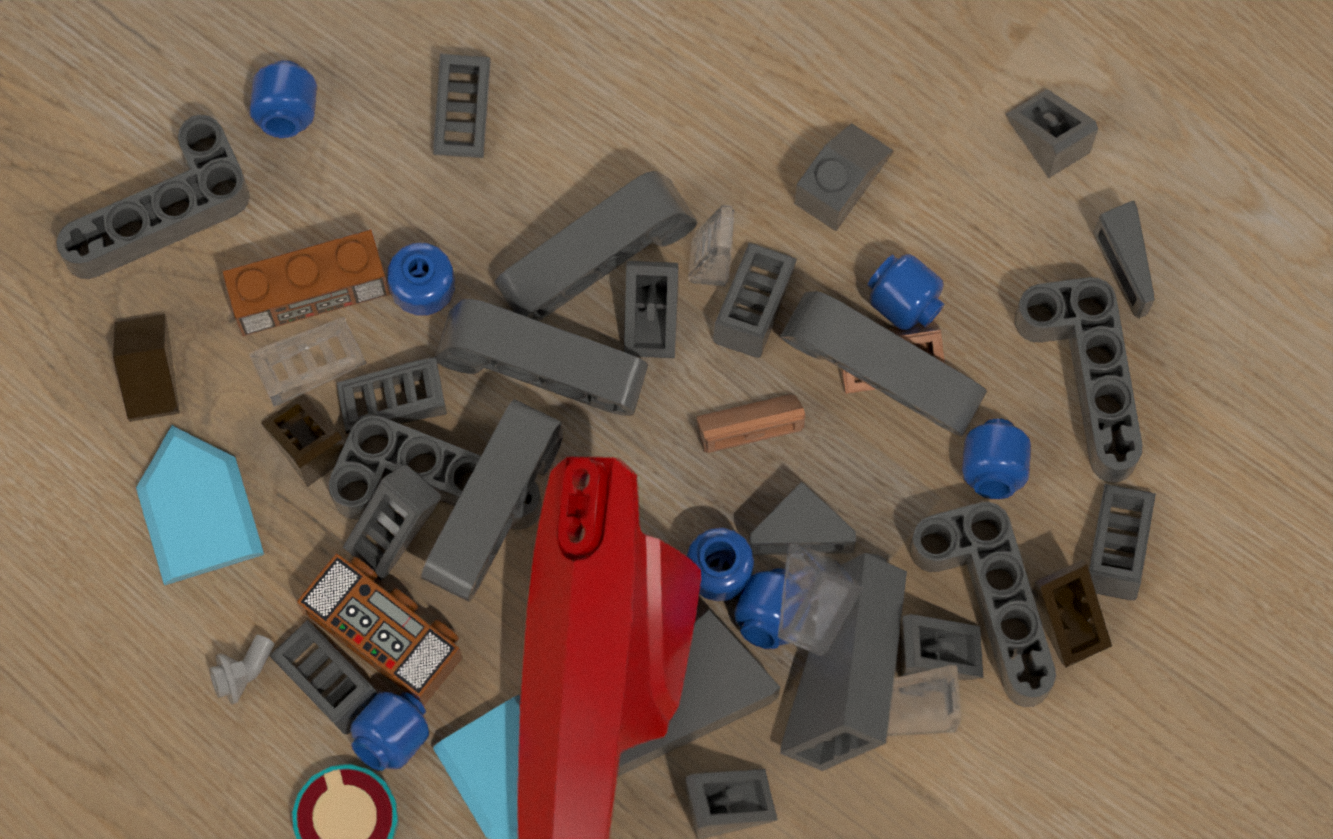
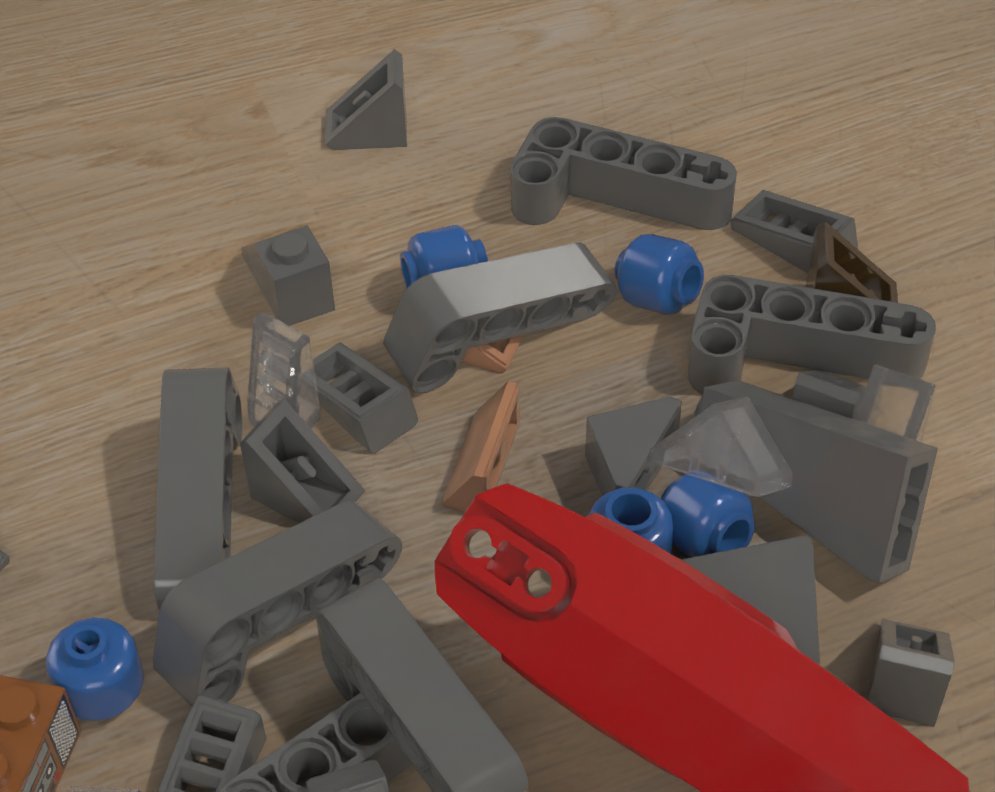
camera: 60 degrees left, 25 degrees down
(1124, 248) = (503, 96): dark grey slope -> none

